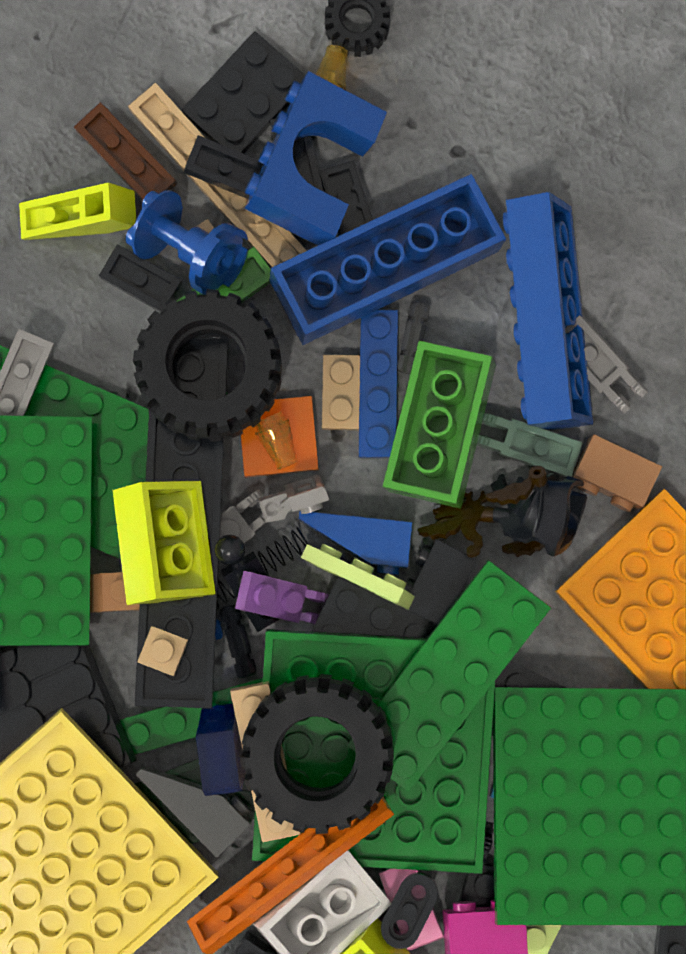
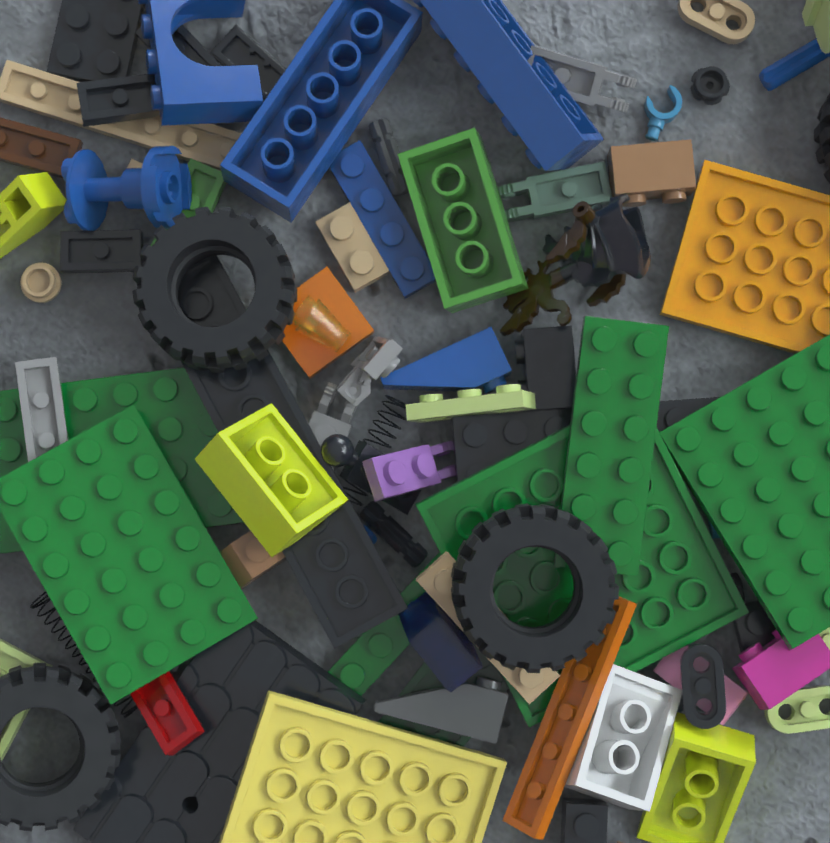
camera: 25 degrees left, 0 degrees up
(78, 275) = (41, 282): none -> tan plate
(163, 651) = (330, 581): tan plate -> none
(646, 434) = (657, 119): none -> dark azure piece

